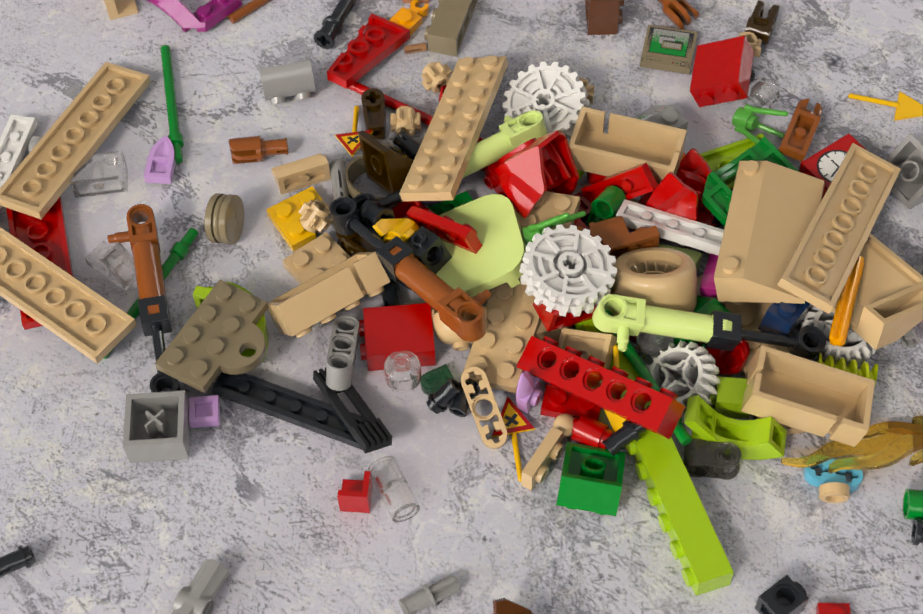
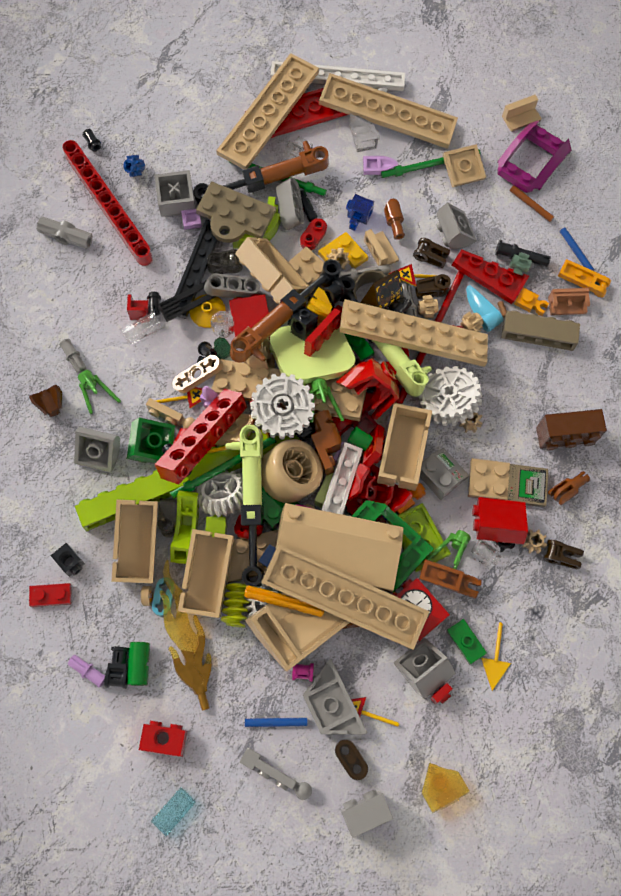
camera: 80 degrees right, 15 degrees up
(93, 493) = (134, 165): none -> blue gear
(131, 536) = (84, 170): none -> red beam
(188, 62) = (464, 165): none -> tan plate
(207, 271) = (290, 204): none -> light grey beam
(211, 256) = (307, 207): none -> black axle
(224, 218) = (330, 205): dark tan head -> none
(238, 182) = (359, 210): none -> clear blue brick
(259, 250) = (314, 233): none -> red plate
(293, 365) = (225, 262): none -> clear smoke piece
(319, 113) = (432, 253): none -> dark brown piece
(348, 470) = (154, 299): none -> black pin
(354, 16) = (520, 263): none -> sand green gear
(382, 403) = (203, 317): none -> yellow dish
(413, 64) = (480, 305): none -> medium azure piece
(477, 569) = (89, 381): none -> bright green plant
(601, 554) = (96, 449): none -> light grey brick
(659, 85) = (488, 479): none -> tan plate
(759, 491) = (134, 541): none -> tan piece
(877, 129) = (466, 641): none -> green plate

